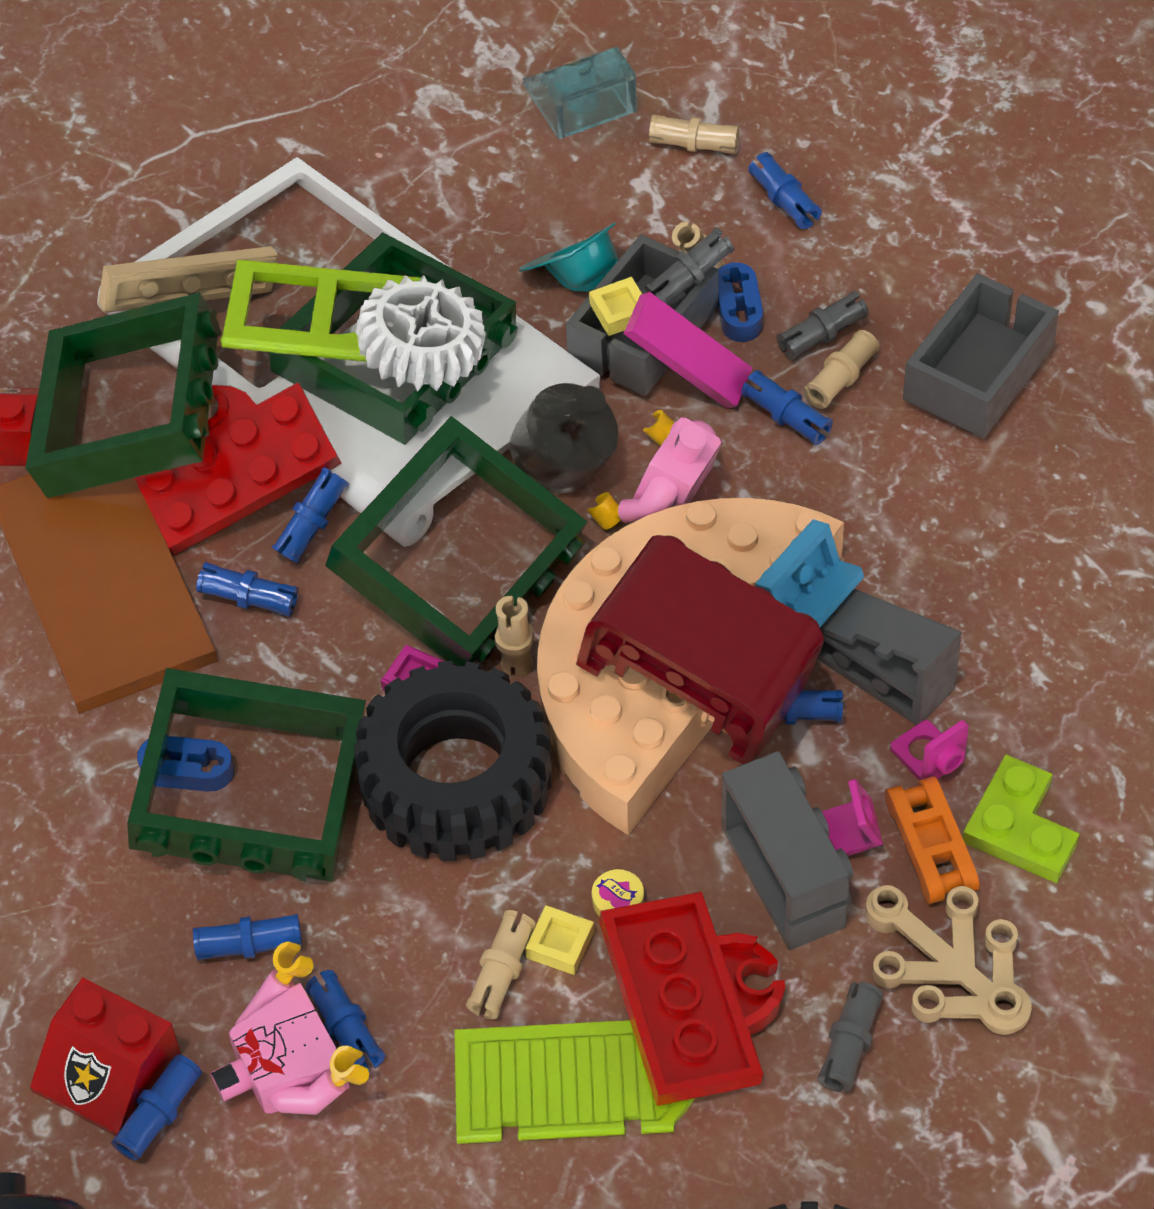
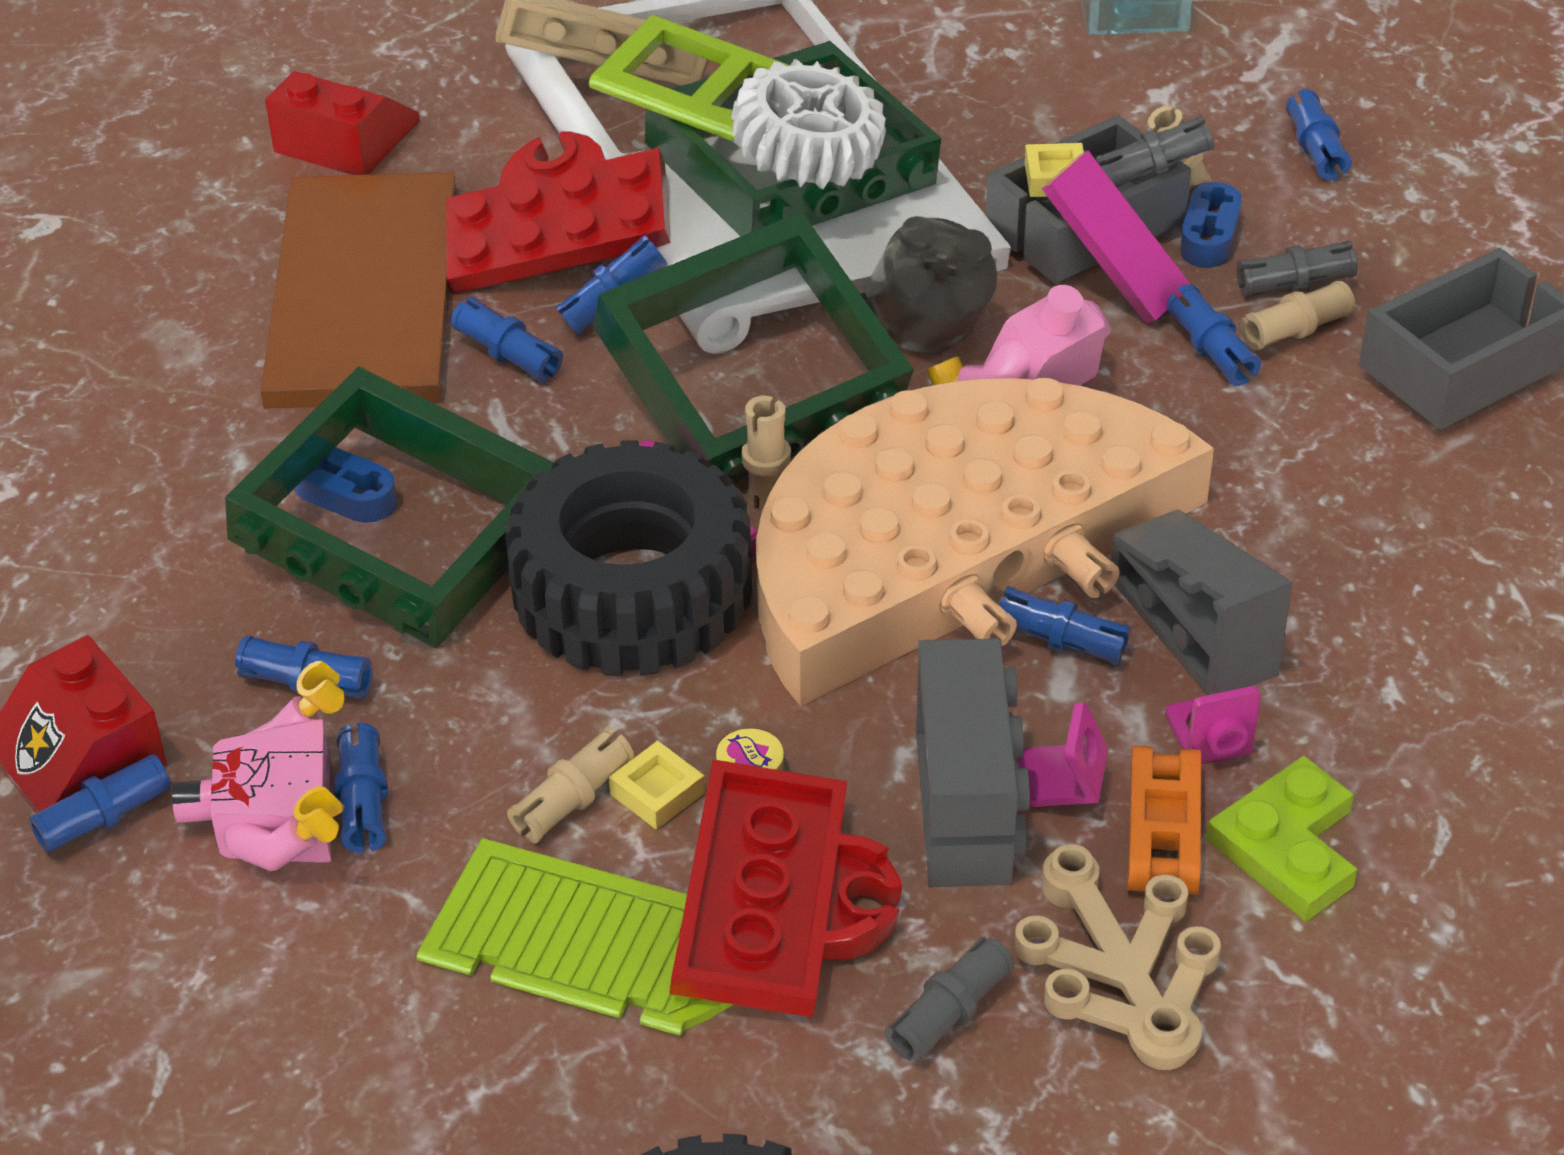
camera: 20 degrees right, 10 degrees down
(68, 469) = (388, 146): dark green window -> none
(582, 263) = (1043, 126): teal piece -> none
(694, 134) = (1240, 60): tan pin -> none
(705, 641) = (973, 502): dark red windscreen -> none
(811, 574) = (1130, 484): dark azure bracket -> none

